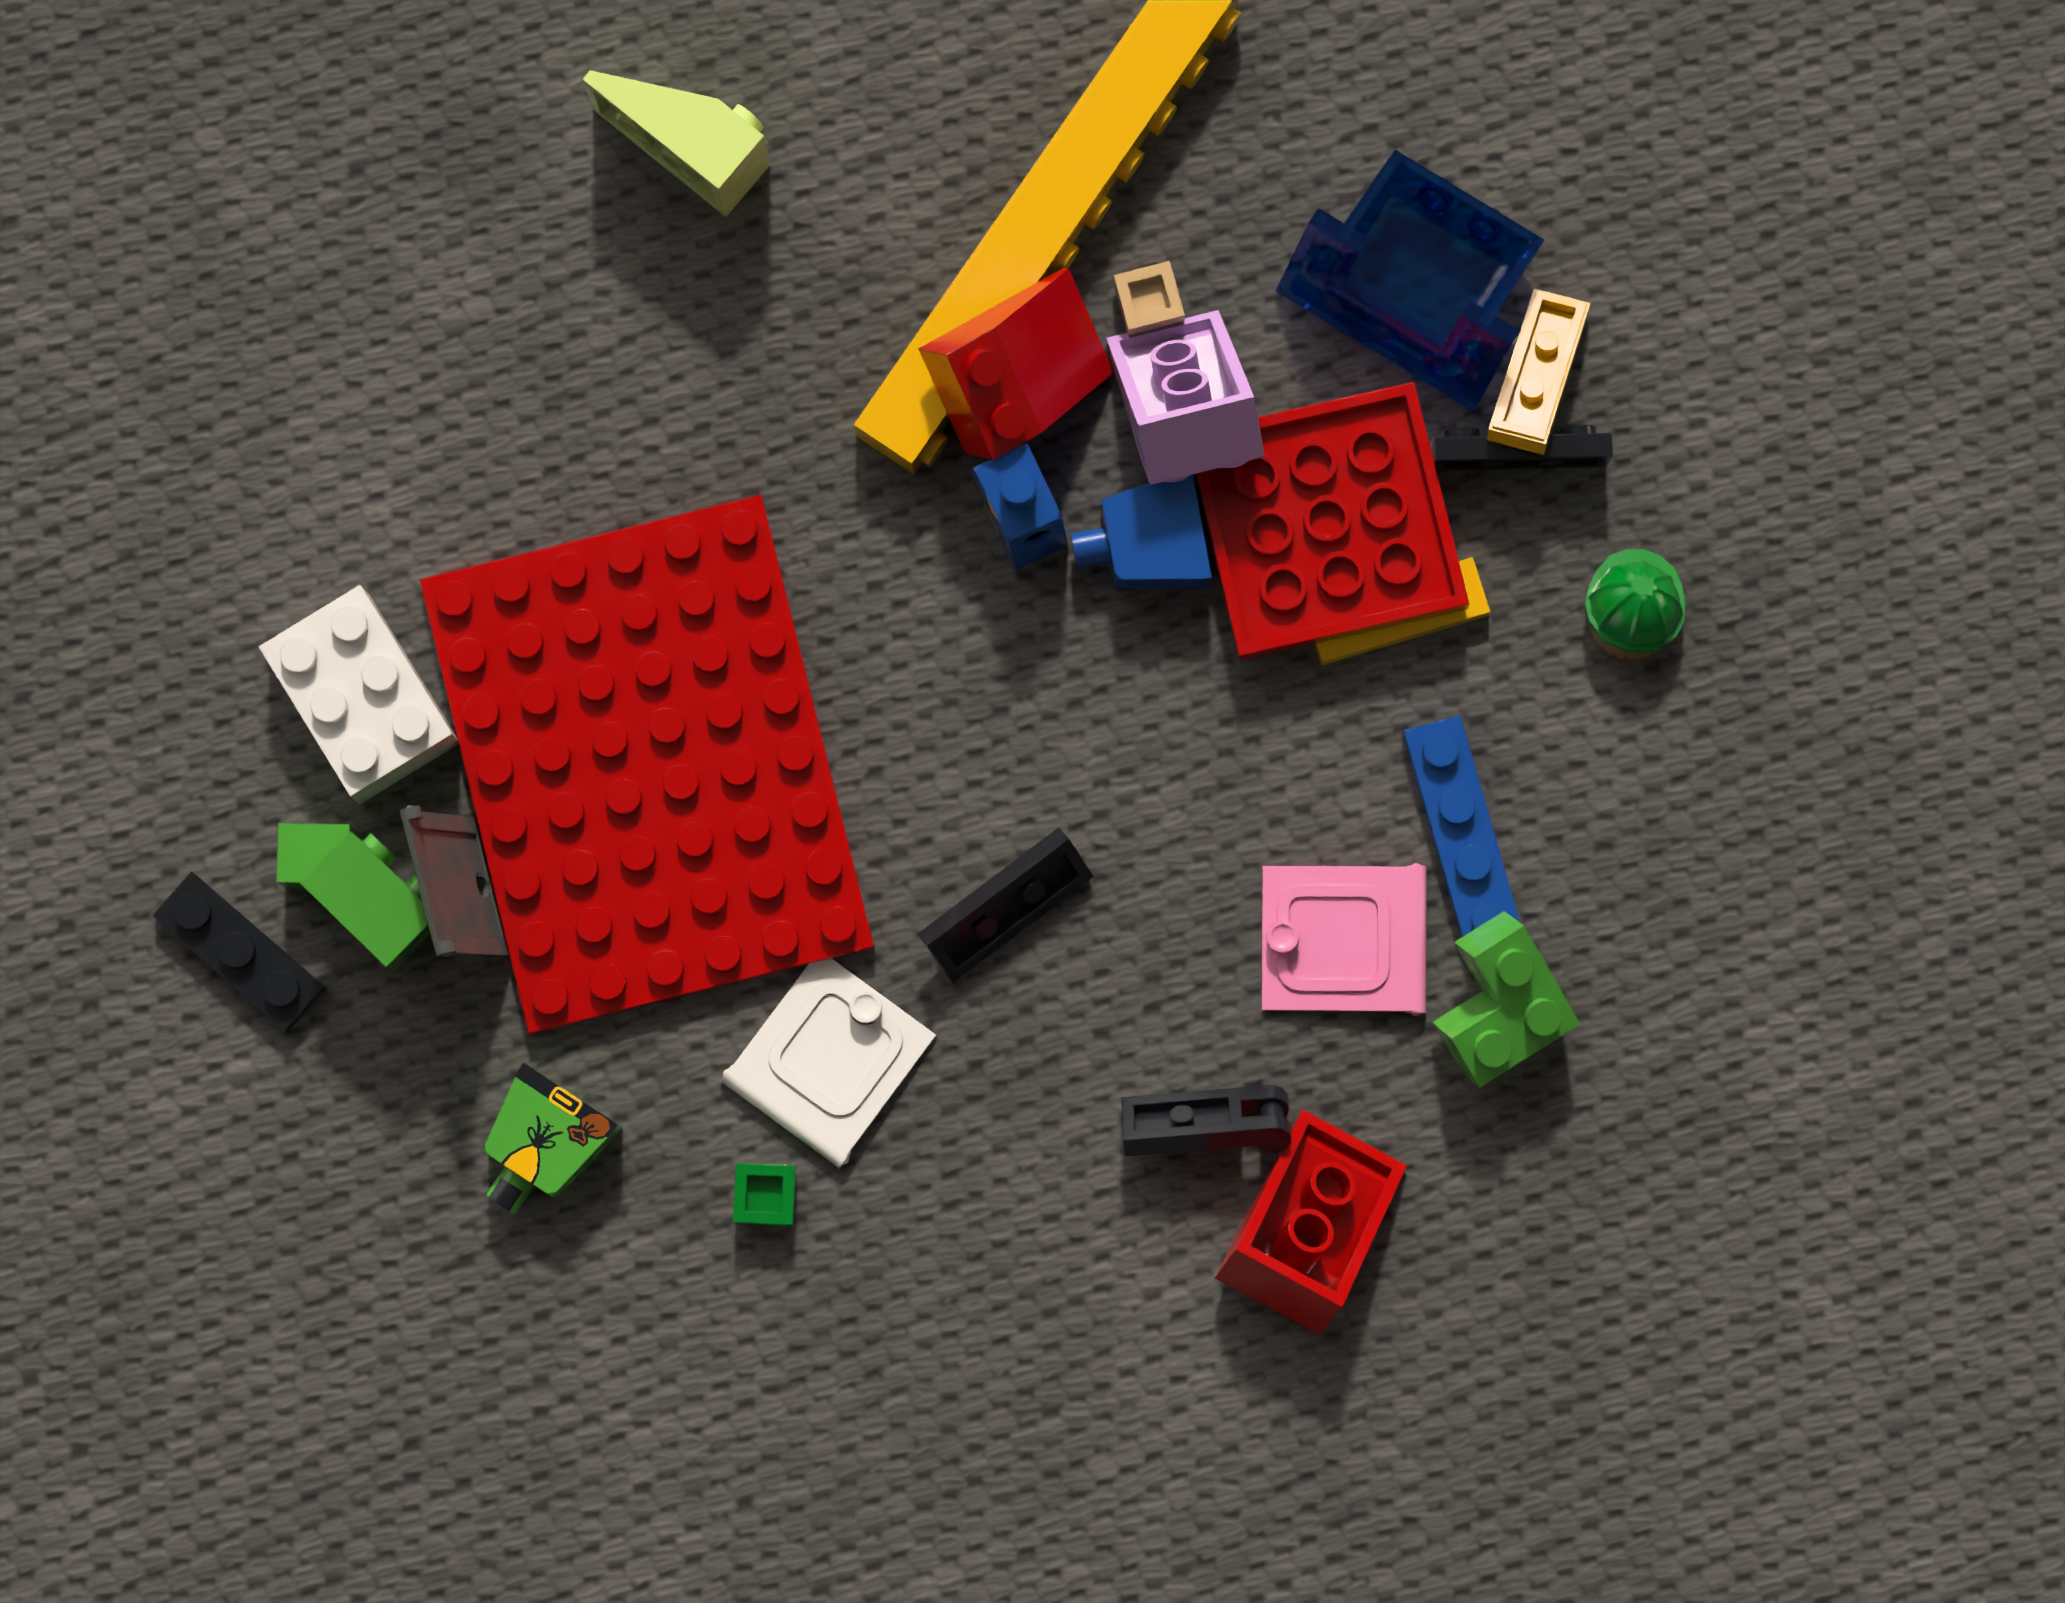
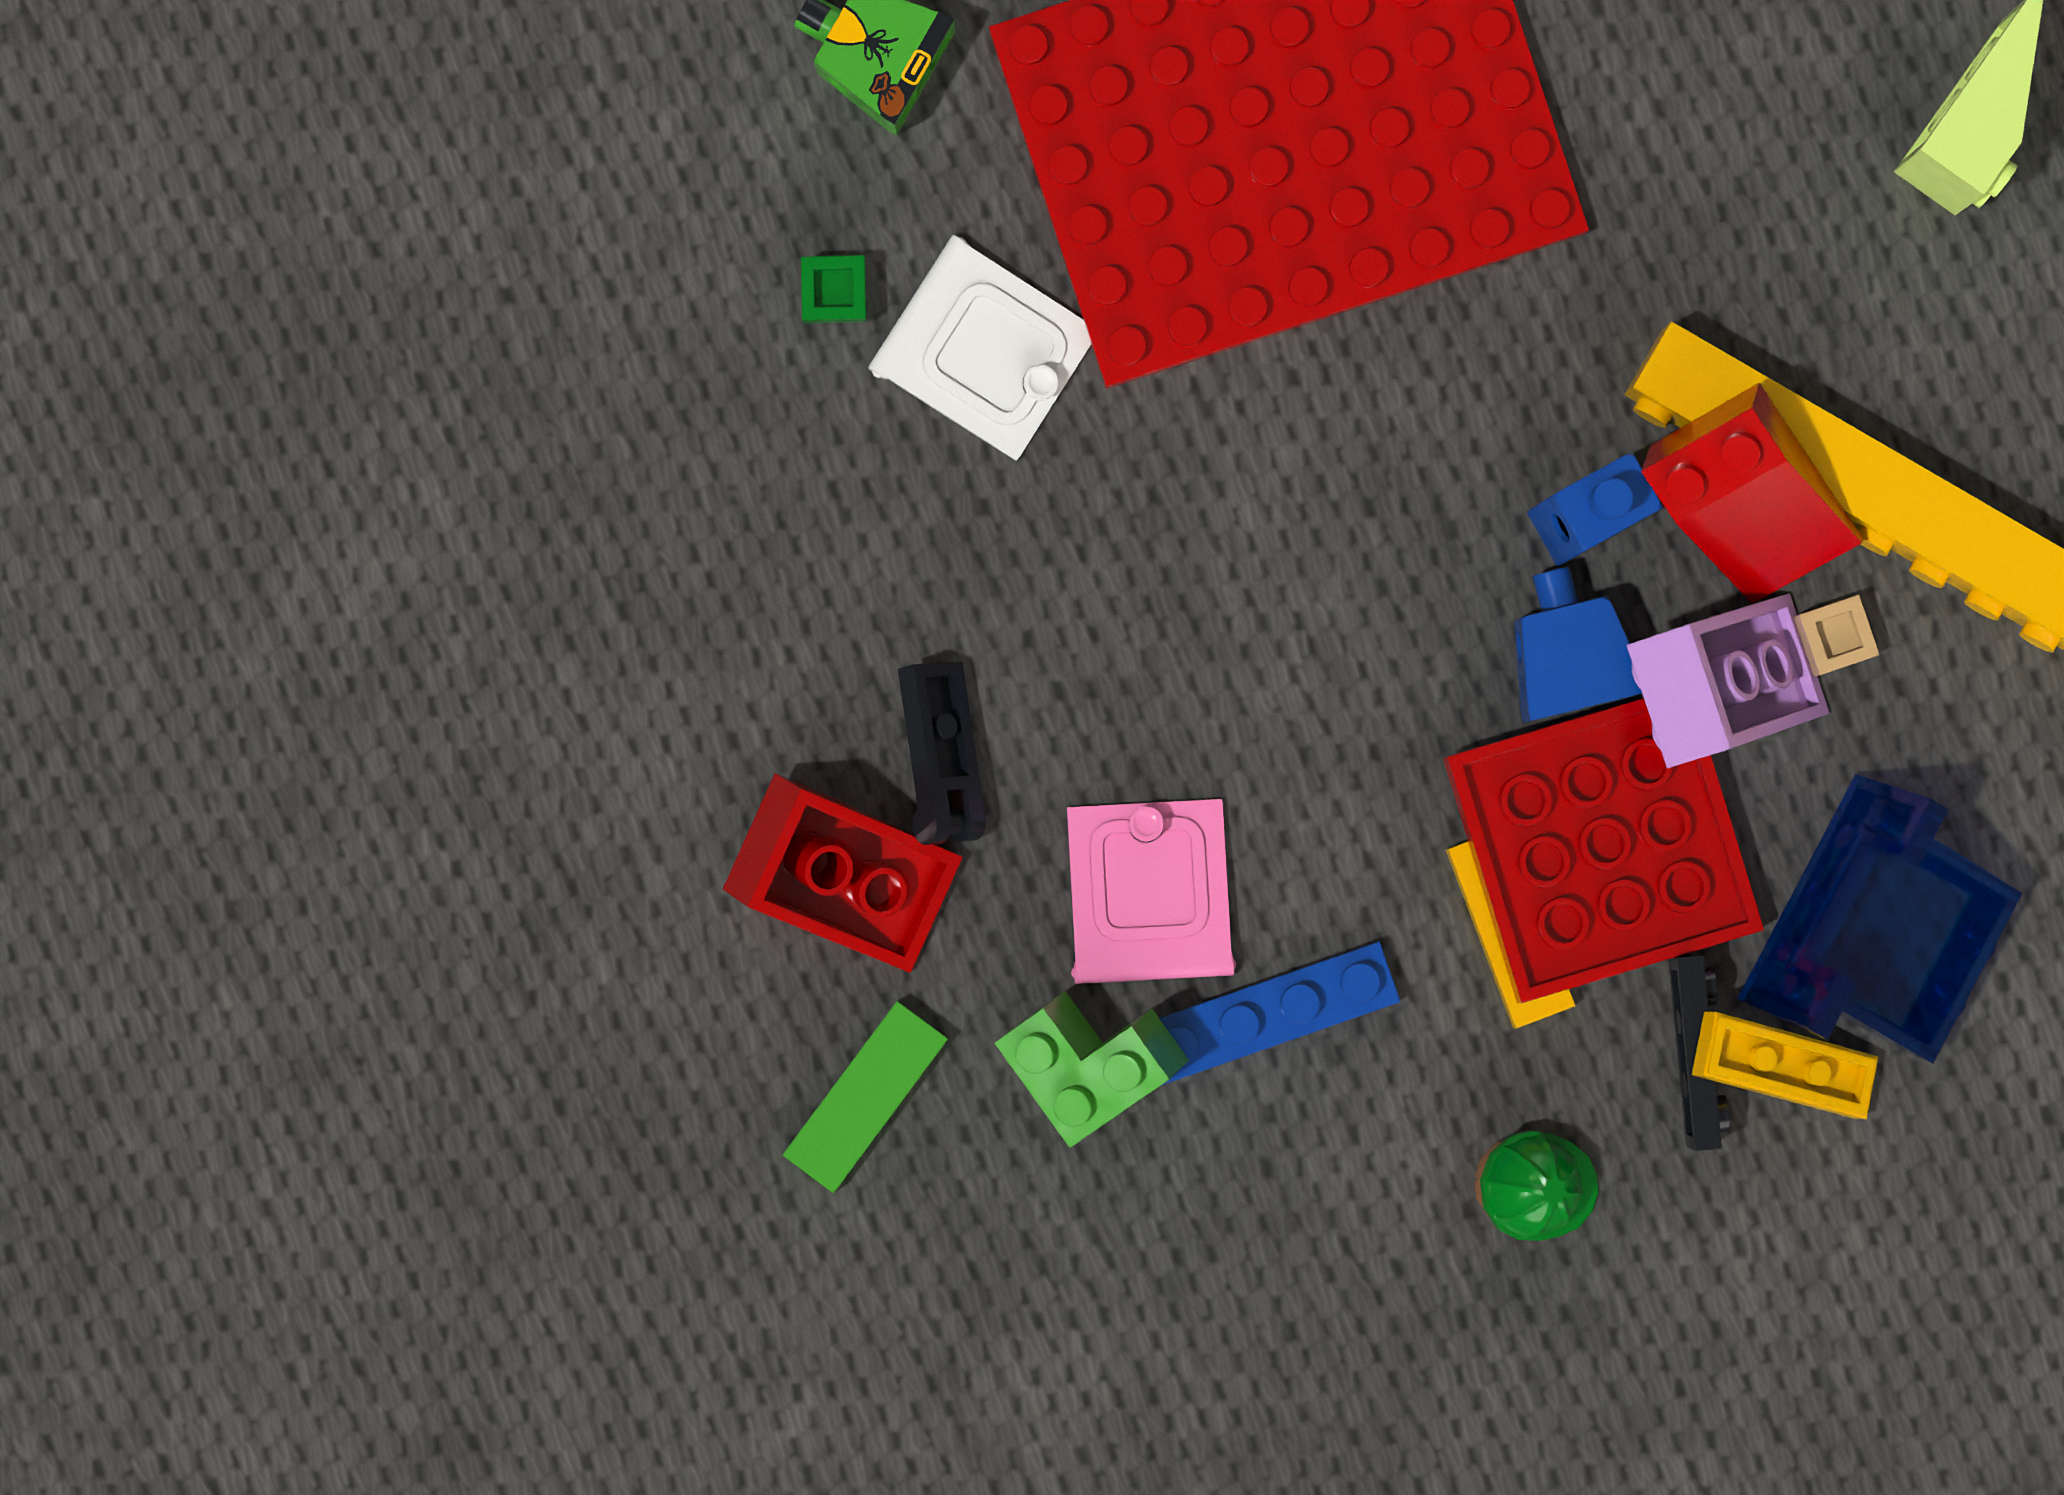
camera: 85 degrees right, 5 degrees up
(1005, 905) = (1159, 523): black plate -> none
(1520, 1214) = (865, 1096): none -> bright green tile

